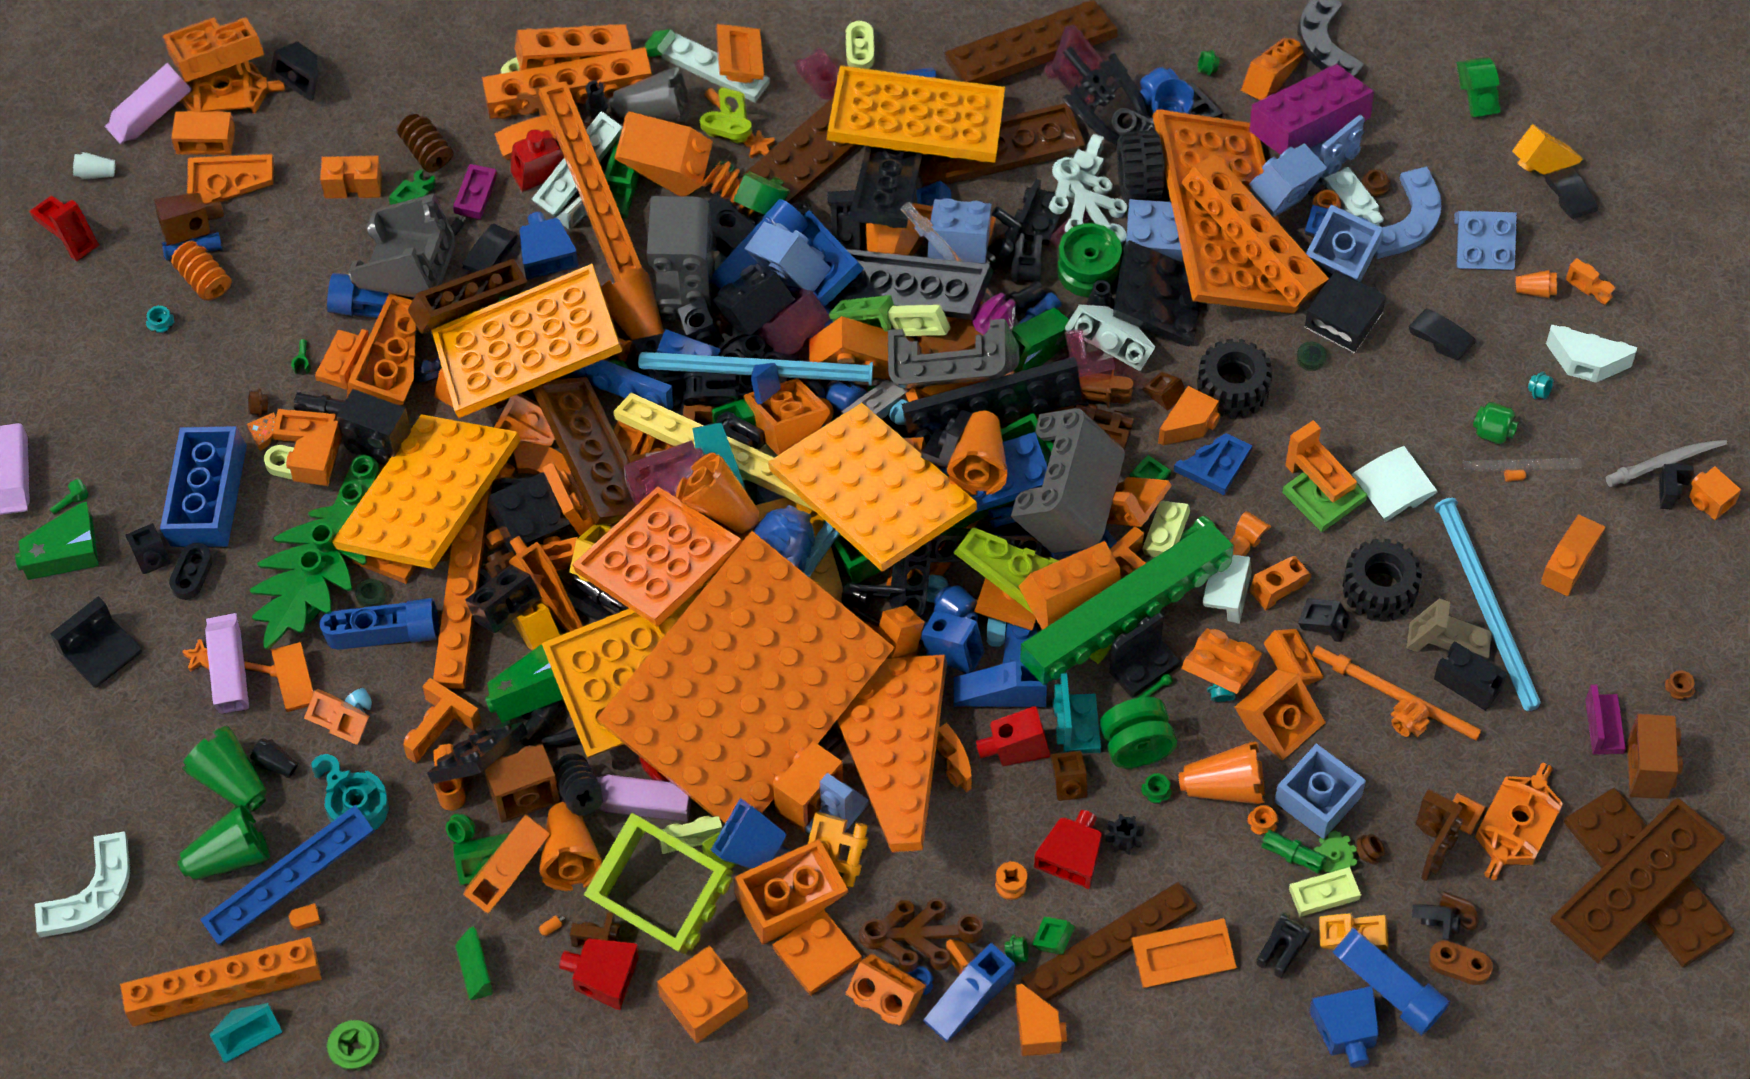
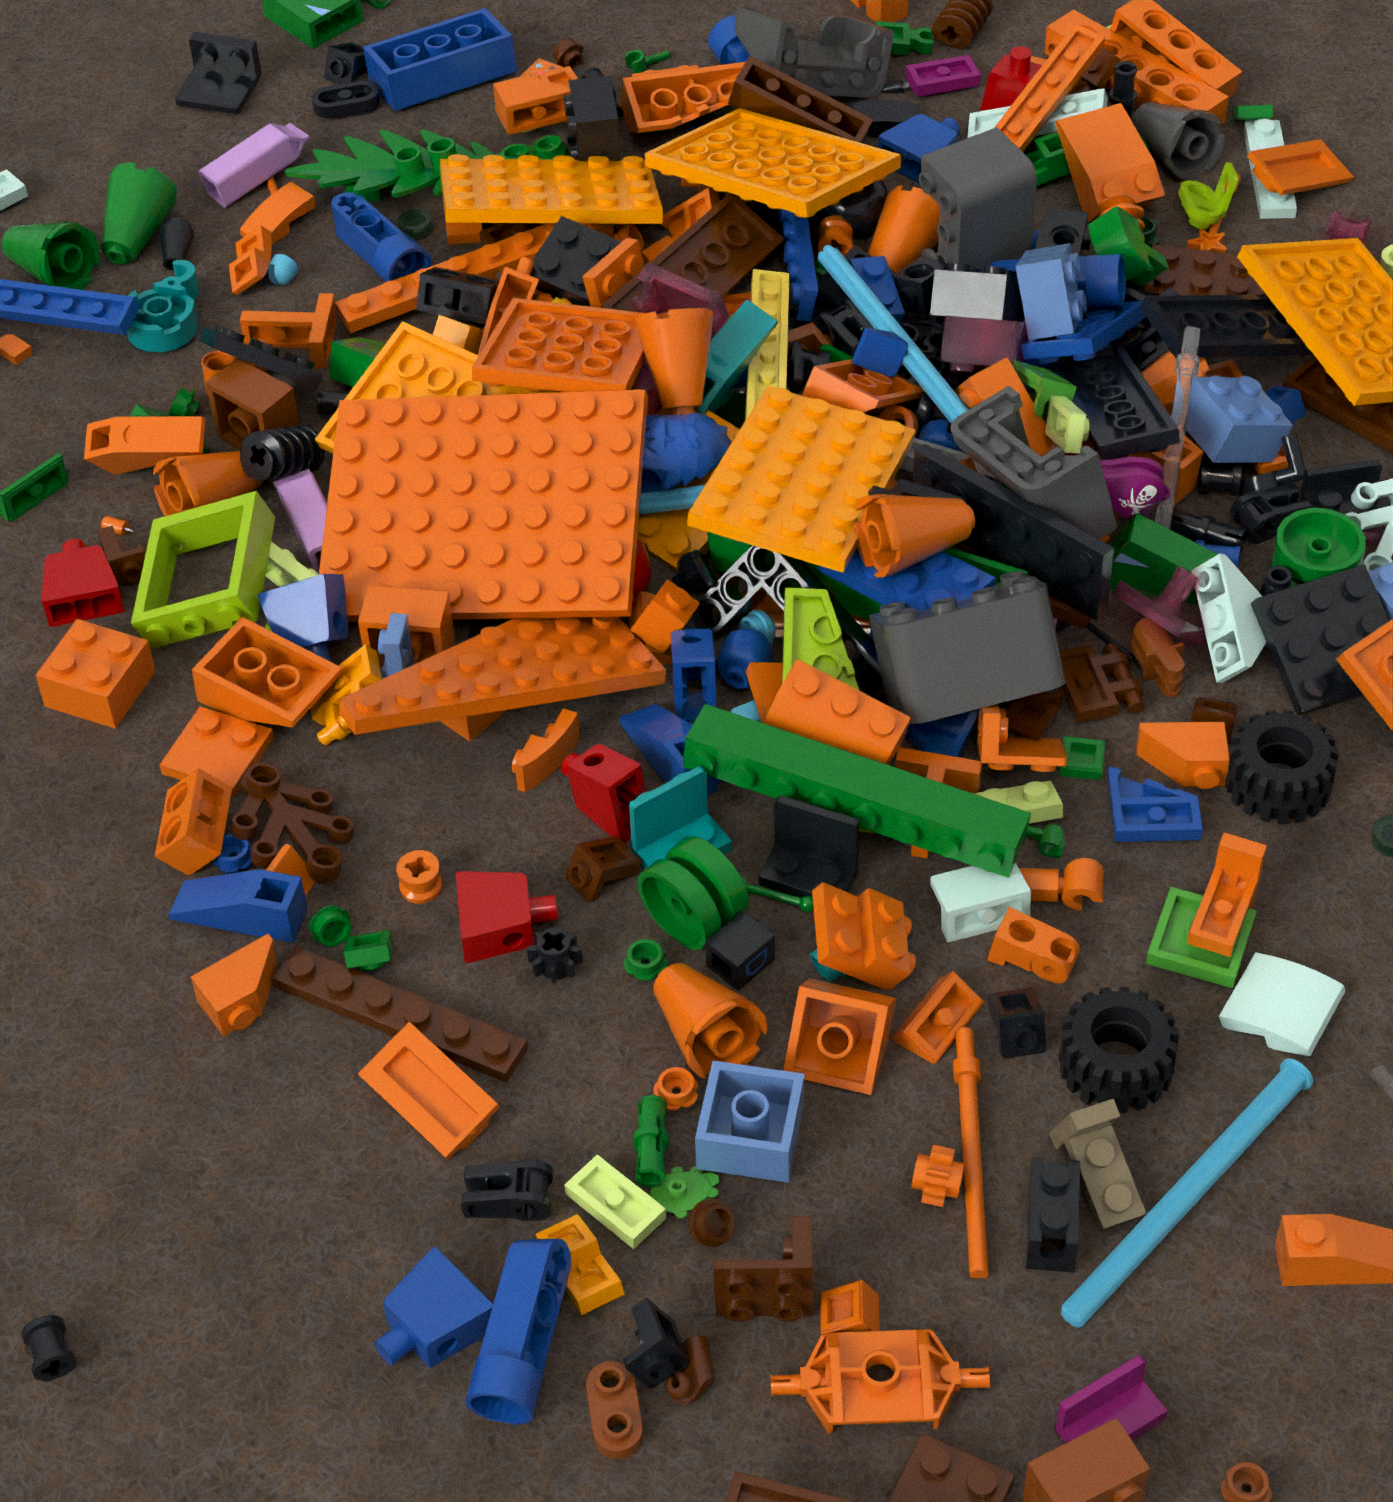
camera: 60 degrees right, 10 degrees down
(1188, 731) = (740, 950): none -> black brick

